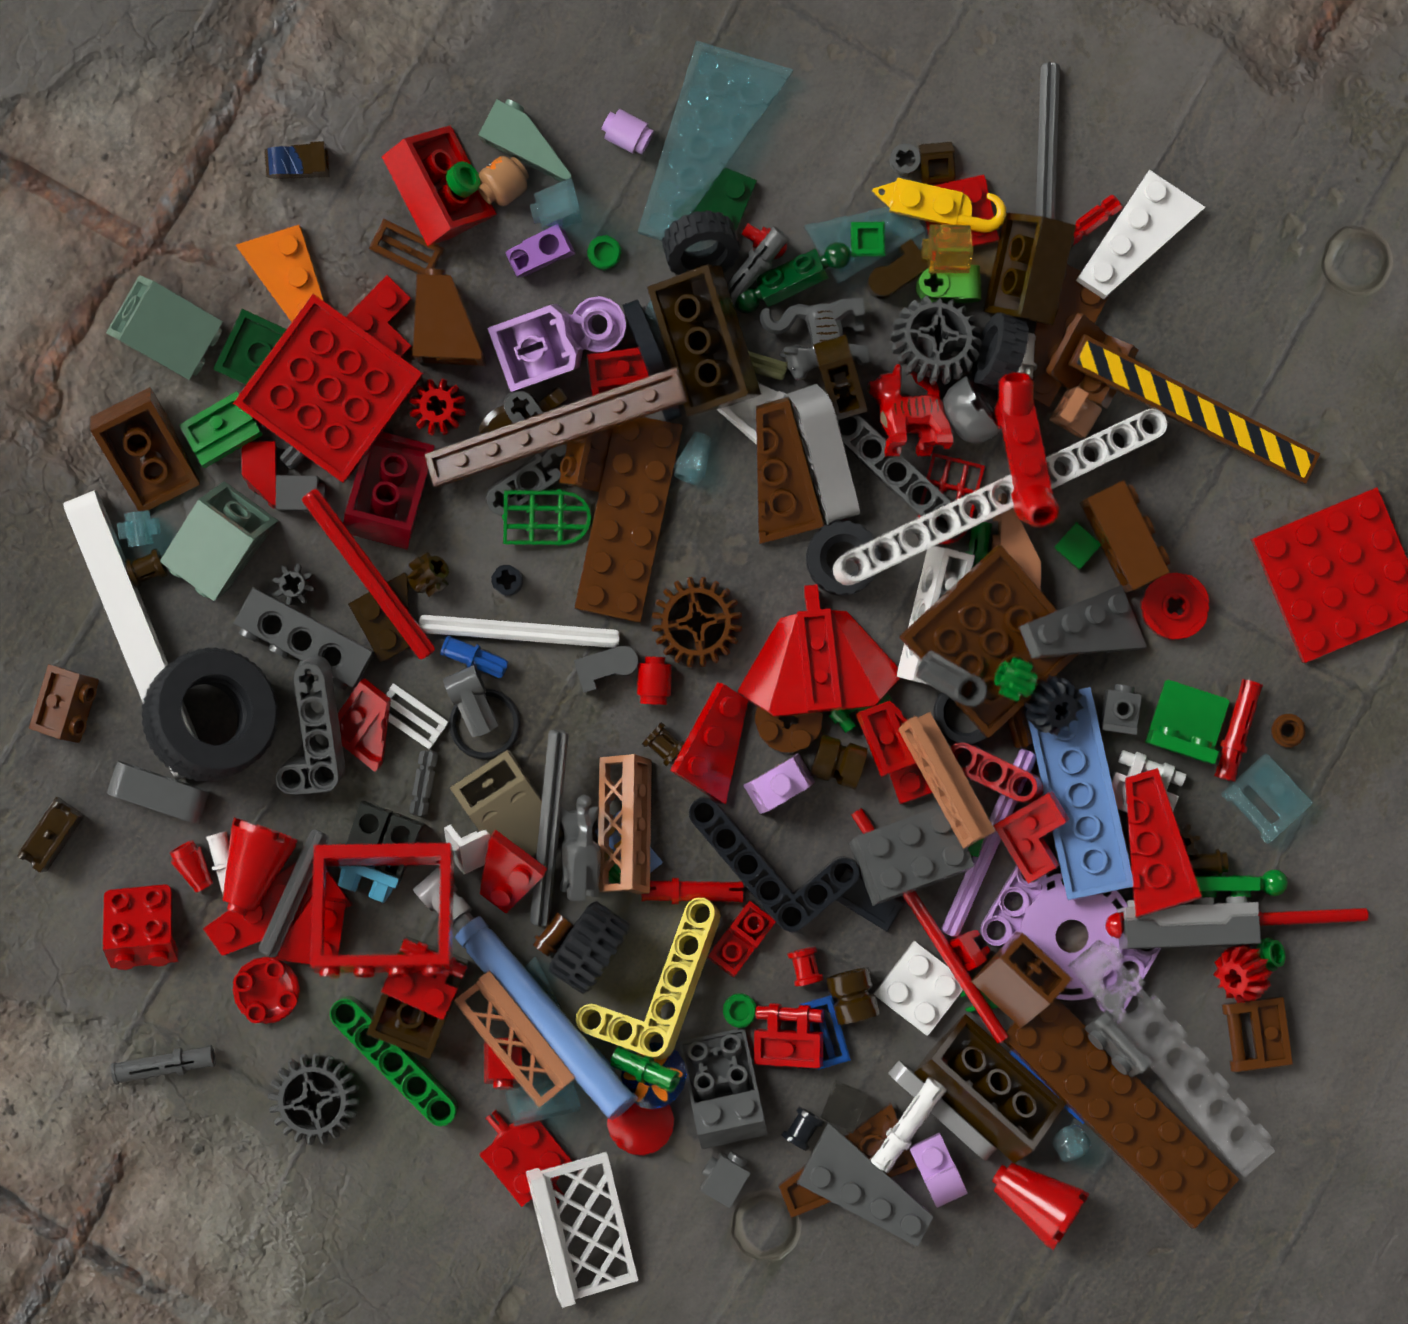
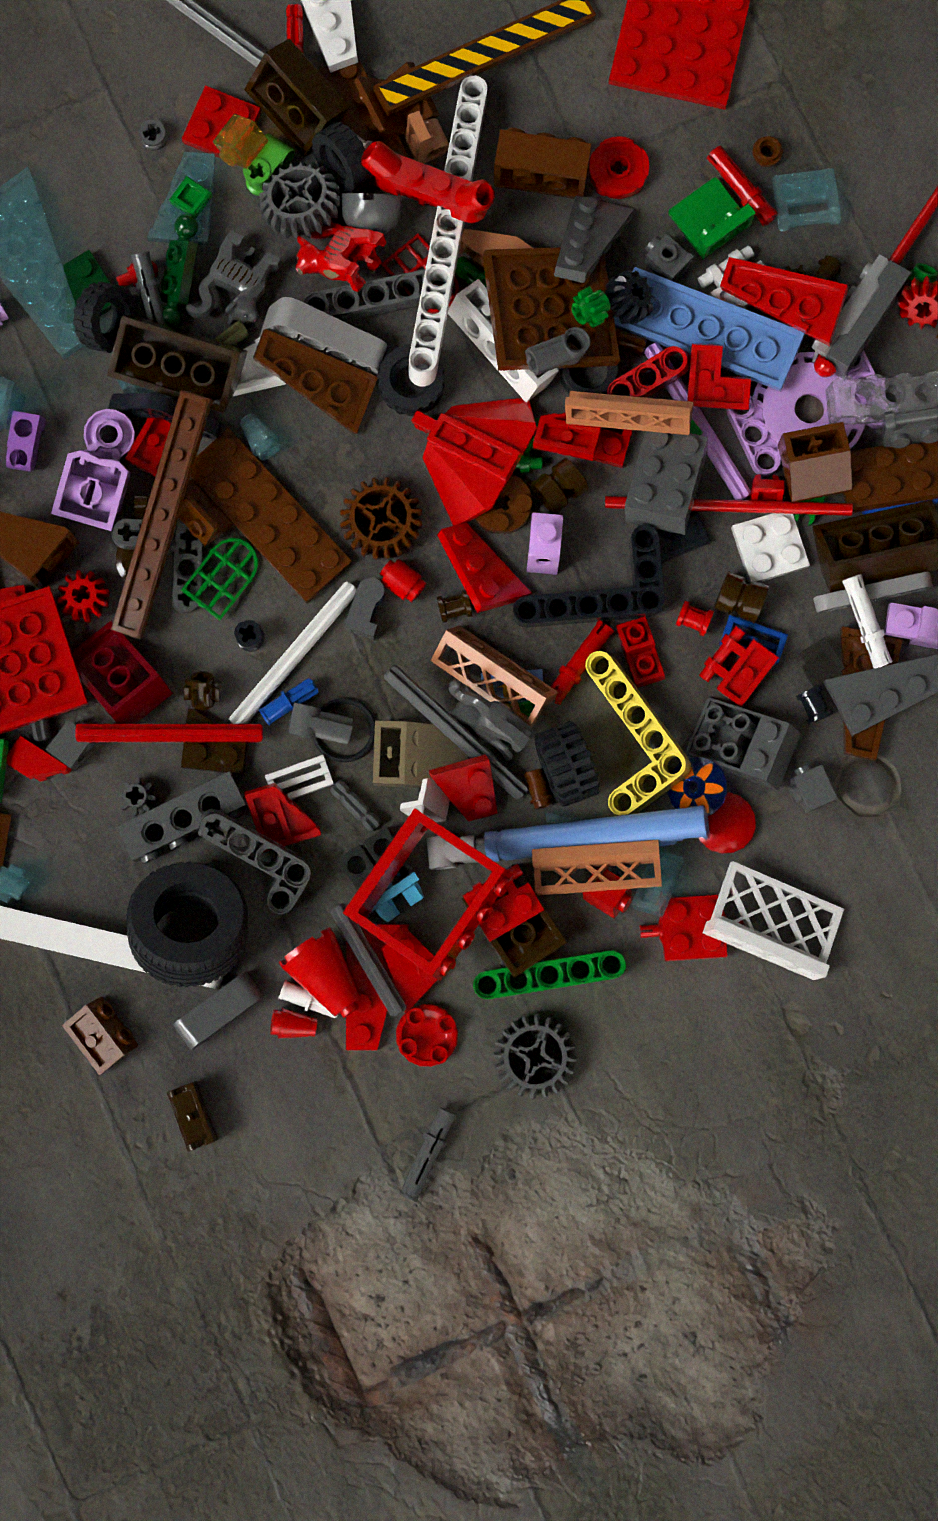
camera: 55 degrees left, 5 degrees down
(138, 927) = (310, 1098): red bracket -> none
(145, 568) = (43, 899): dark brown bush -> none
(217, 540) = (62, 831): sand green slope -> none
(604, 252) = (60, 397): green tile -> none
(645, 1069) = (688, 786): green pin -> none
(739, 1010) = (692, 691): green tile -> none
(840, 377) = (275, 280): dark brown brick -> none
(888, 280) = (231, 203): dark brown leg -> none
(937, 163) = (173, 113): dark brown slope -> none
(937, 205) = (200, 131): yellow plate -> none
(1077, 546) = (524, 208): green tile -> none
(1272, 883) = (871, 238): green plate -> none

